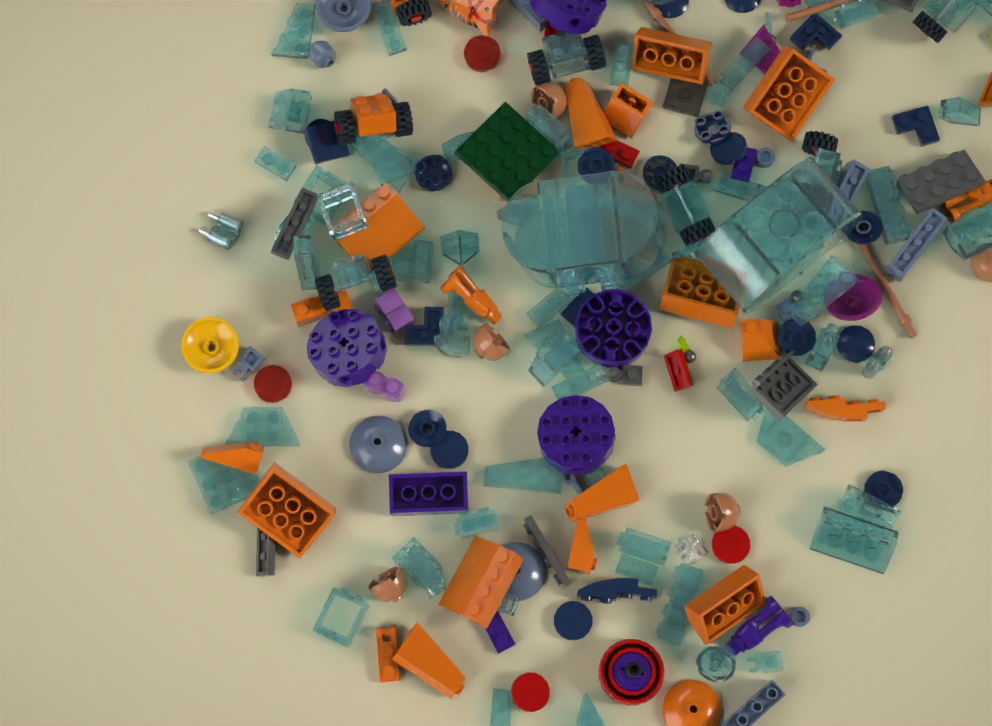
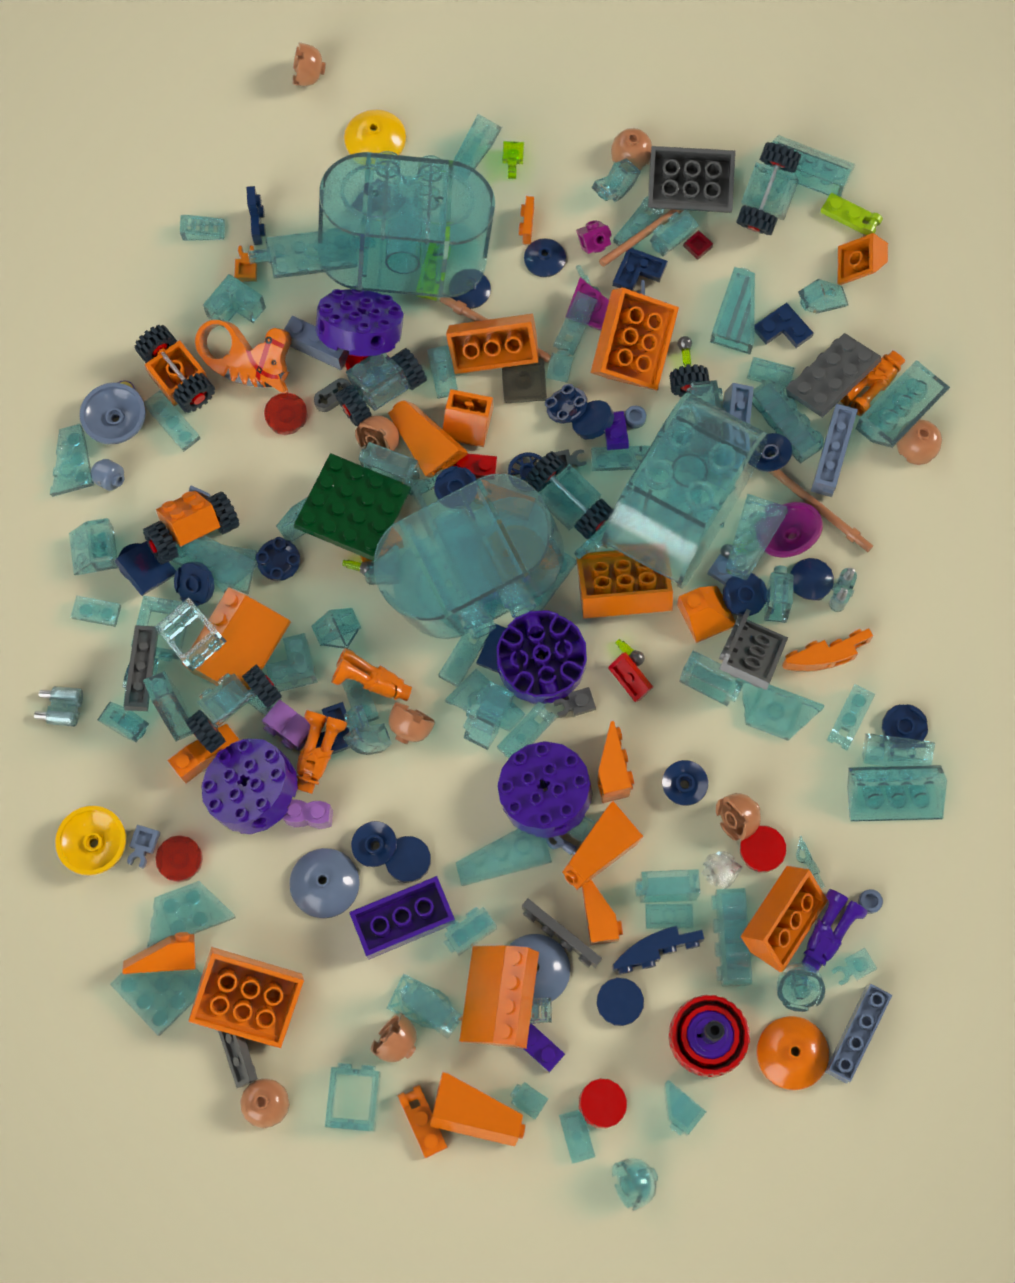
camera: 20 degrees left, 5 degrees down
(266, 261) = (123, 722): none -> clear light blue slope
(273, 595) = (264, 1103): none -> nougat cylinder
(360, 169) = (194, 582): none -> dark blue tile
(402, 345) = (314, 760): none -> orange piece
(474, 668) = (528, 1100): none -> clear light blue bracket
(499, 204) = (362, 567): none -> piece
(523, 47) = (328, 393): none -> dark grey beam
(633, 441) = (613, 778): none -> orange slope
(693, 461) = (693, 775): none -> dark blue dish
(763, 567) = (808, 860): none -> clear light blue hand
(829, 111) = (684, 344): none -> piece
(843, 466) = (851, 716): none -> clear light blue plate
(874, 29) = (698, 245): none -> dark red tile
(880, 103) = (737, 313): none -> clear light blue slope
(886, 156) = (762, 370): none -> clear light blue plate

